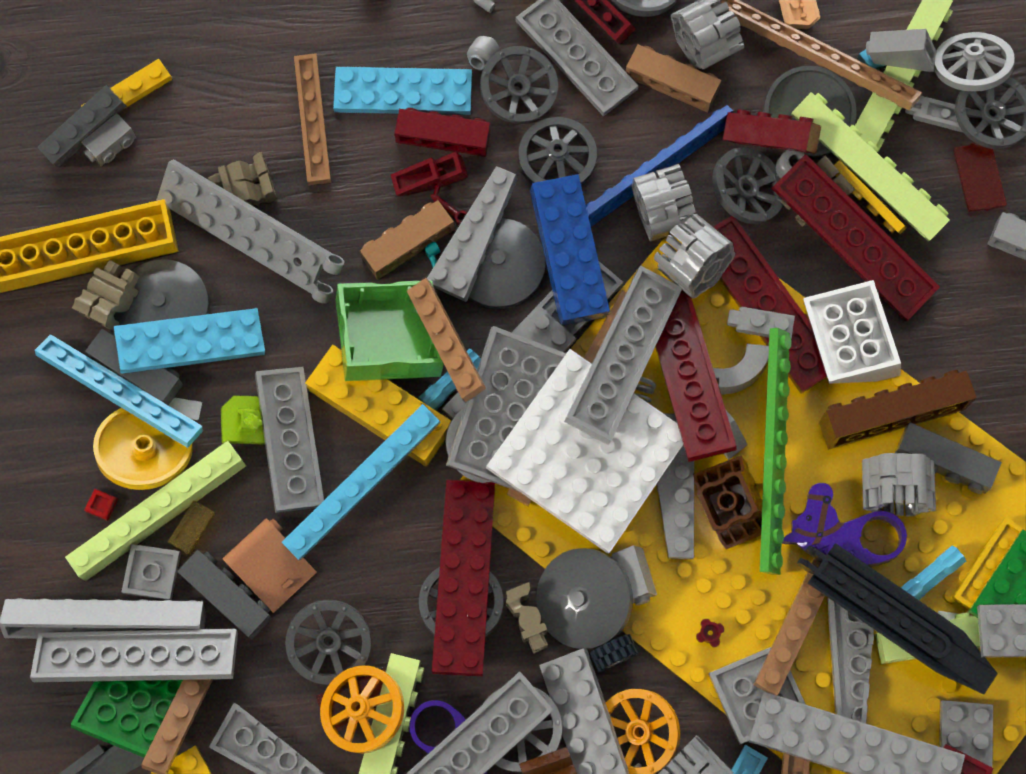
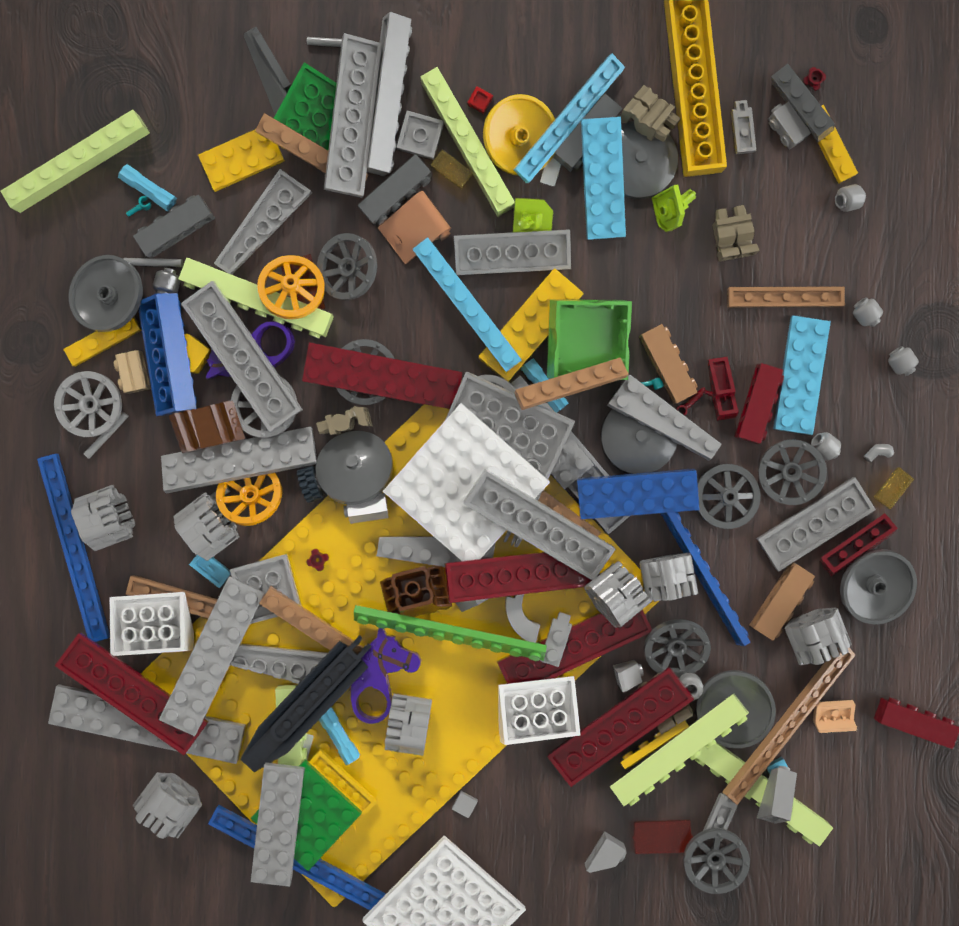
camera: 95 degrees right, 15 degrees up
(38, 709) = (324, 41): none -> light grey bar
(47, 114) = (818, 74): none -> dark red plate
(114, 190) = (743, 128): none -> light grey hinge
(189, 62) = (850, 198): none -> light grey head
(218, 258) = (670, 207): none -> lime piece
(248, 230) = (693, 235): light grey hinge -> none
(321, 27) = (867, 312): none -> light grey head
(772, 132) = (718, 675): dark red brick -> none
(790, 238) = (628, 674): none -> light grey slope
(897, 409) = (471, 739): reddish brown brick -> none
(950, 458) = (428, 766): dark grey brick -> none
(974, 57) = (764, 853): light grey wheel -> none
(987, 412) = (464, 804): none -> light grey tile

